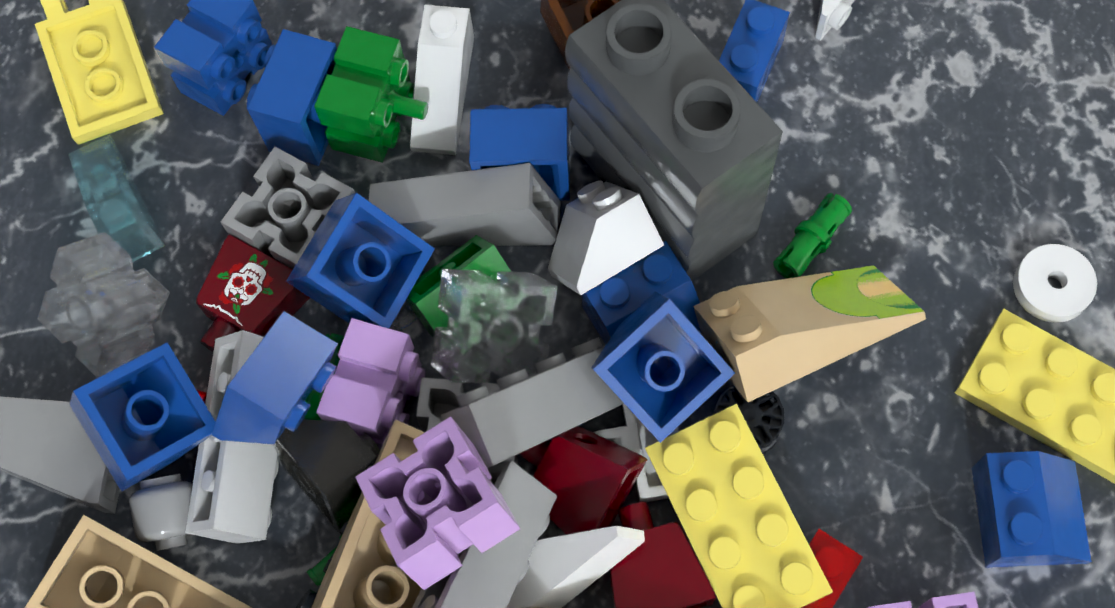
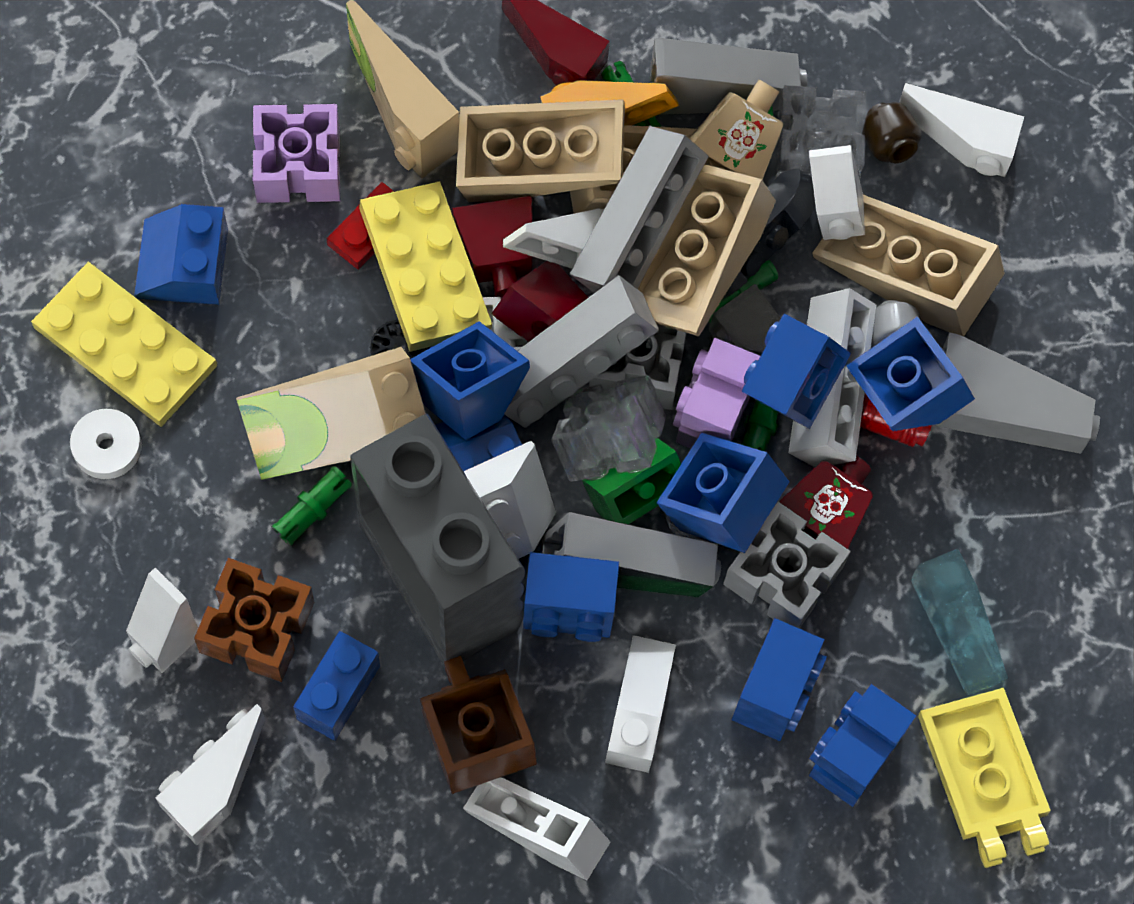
camera: 175 degrees right, 0 degrees up
(102, 303) = (954, 495): clear brick -> none
(366, 95) = (709, 672): green brick -> none
(436, 504) = (671, 210): lavender brick -> none
(848, 101) = (243, 596): none -> dark orange brick
(938, 79) = (161, 623): none -> white slope

